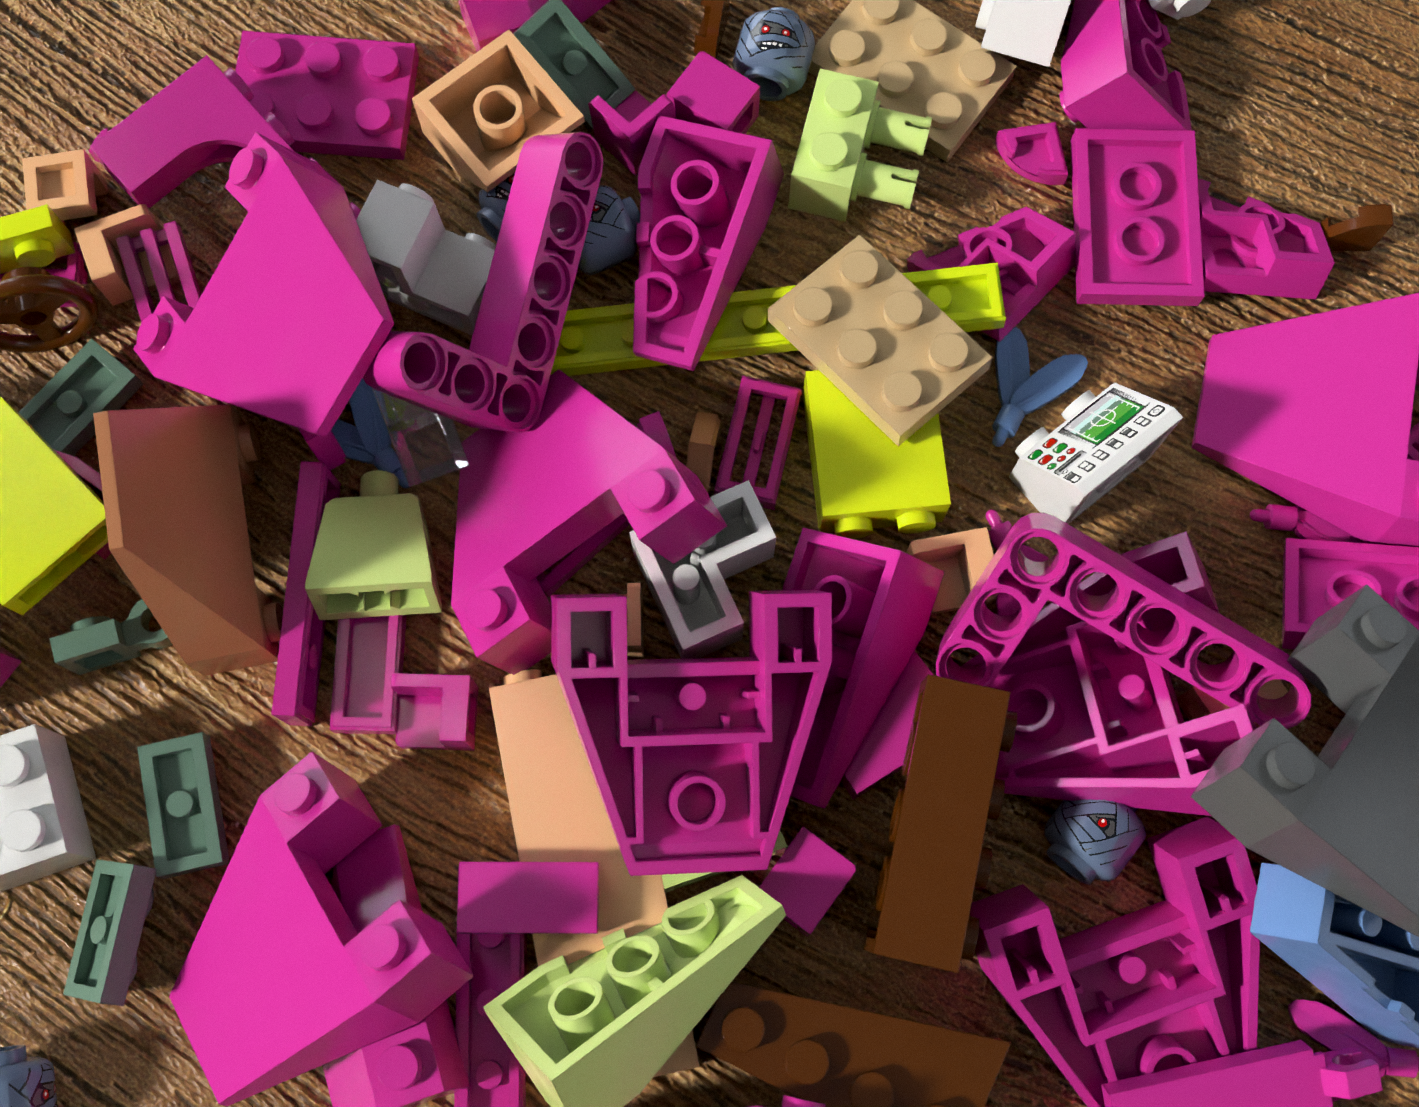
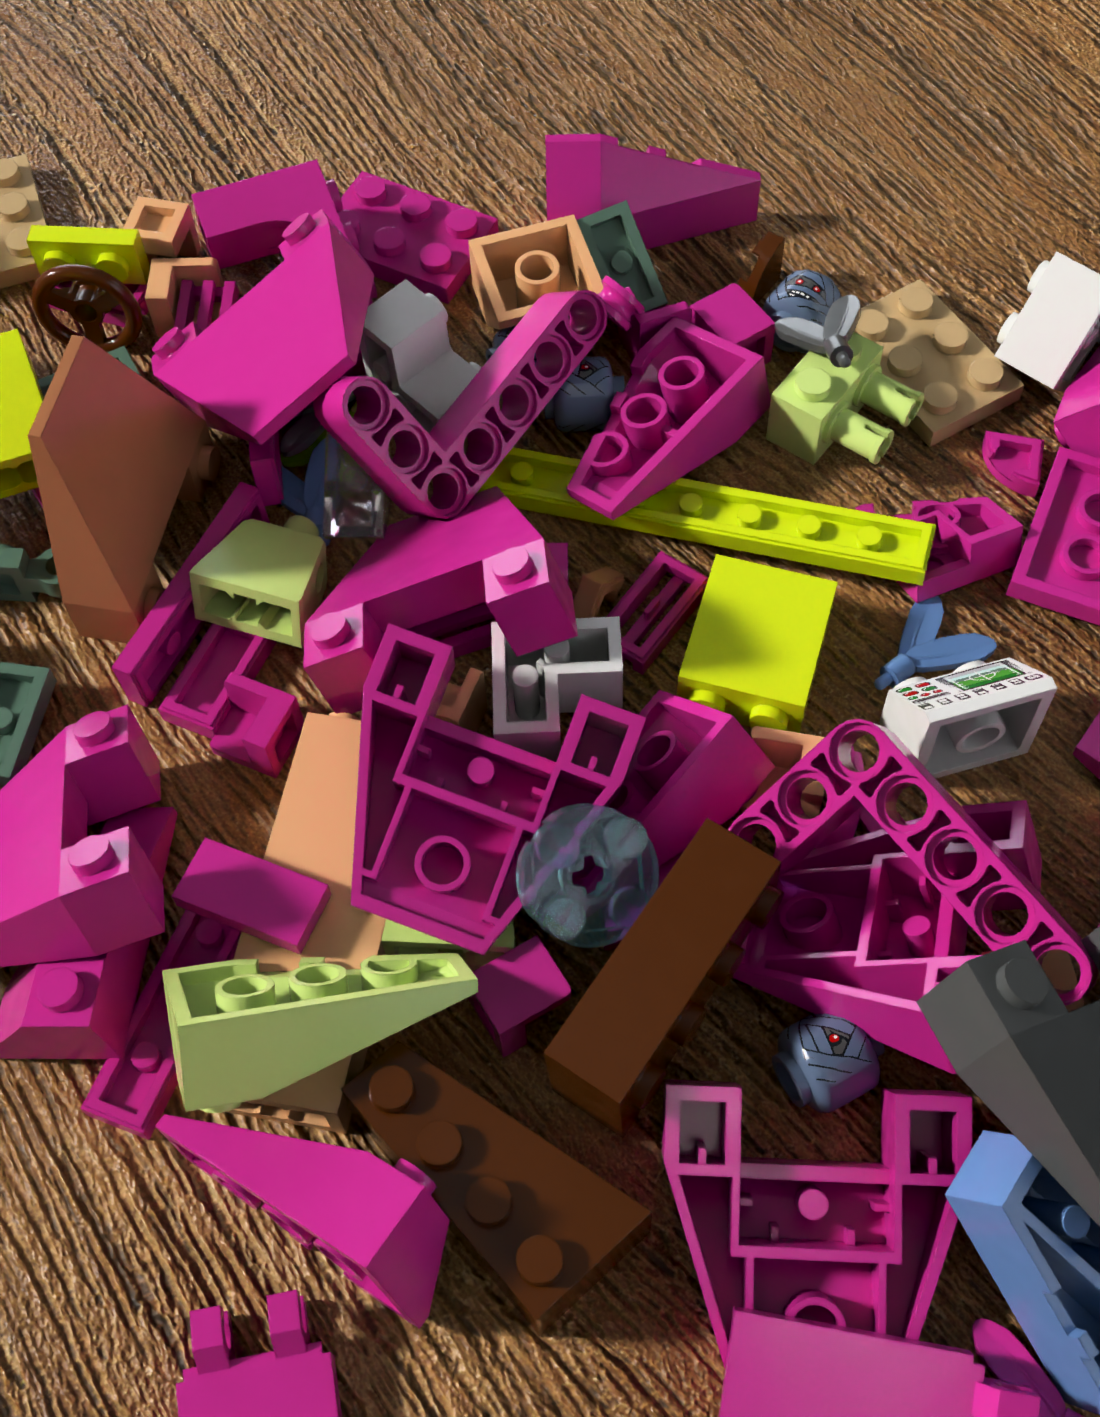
camera: 25 degrees right, 15 degrees down
(601, 126) = (619, 303): none -> dark pink bush
(821, 96) = (827, 339): none -> dark grey piece
(867, 768) = (560, 849): none -> clear light blue plate
(879, 339) = (795, 548): tan plate -> none

